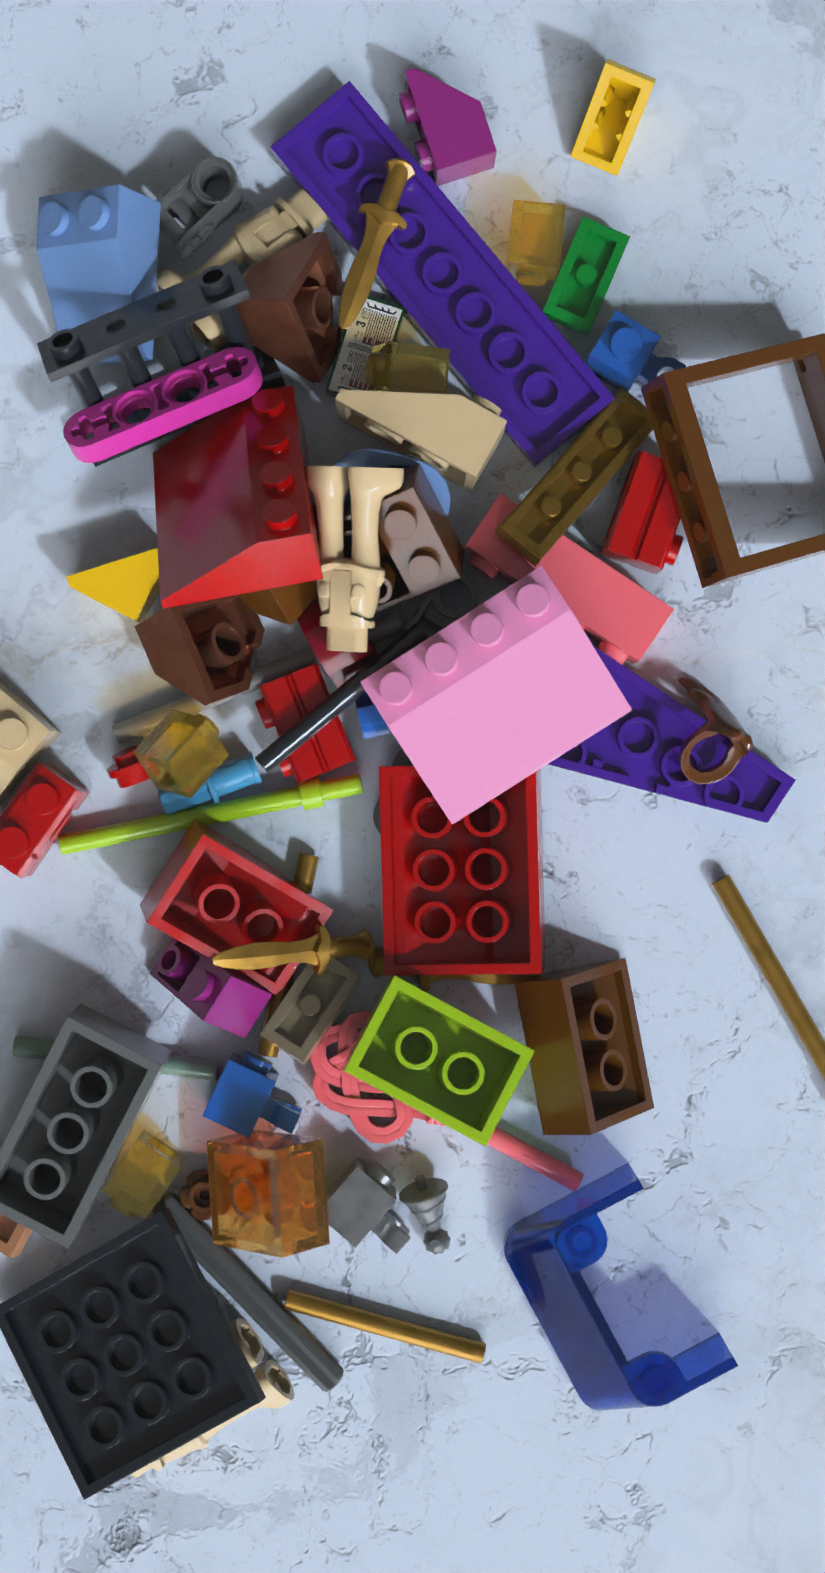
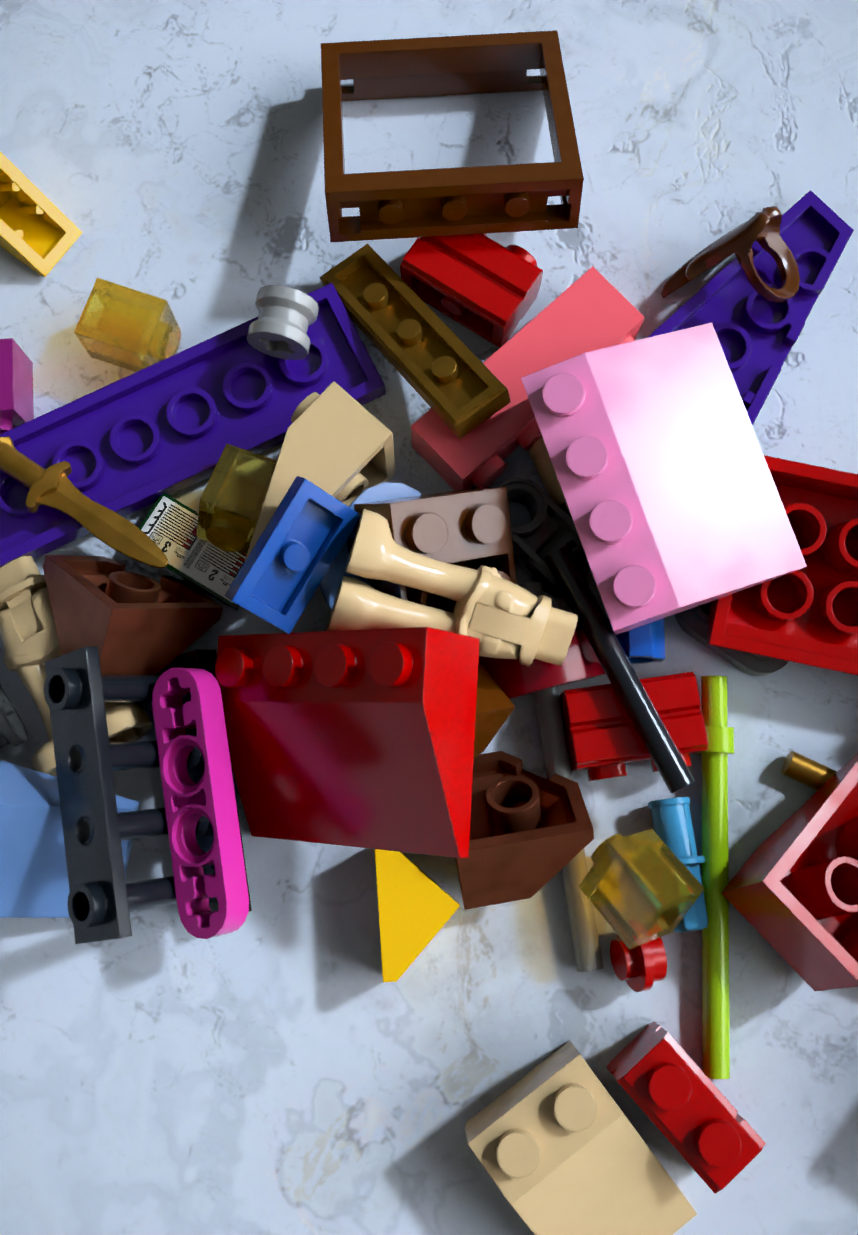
camera: 75 degrees left, 10 degrees down
(356, 424) = (293, 554): none -> blue plate
(561, 367) = (282, 322): none -> light grey wheel
(585, 276) = (193, 288): green plate -> none
(626, 354) = (286, 251): blue brick -> none

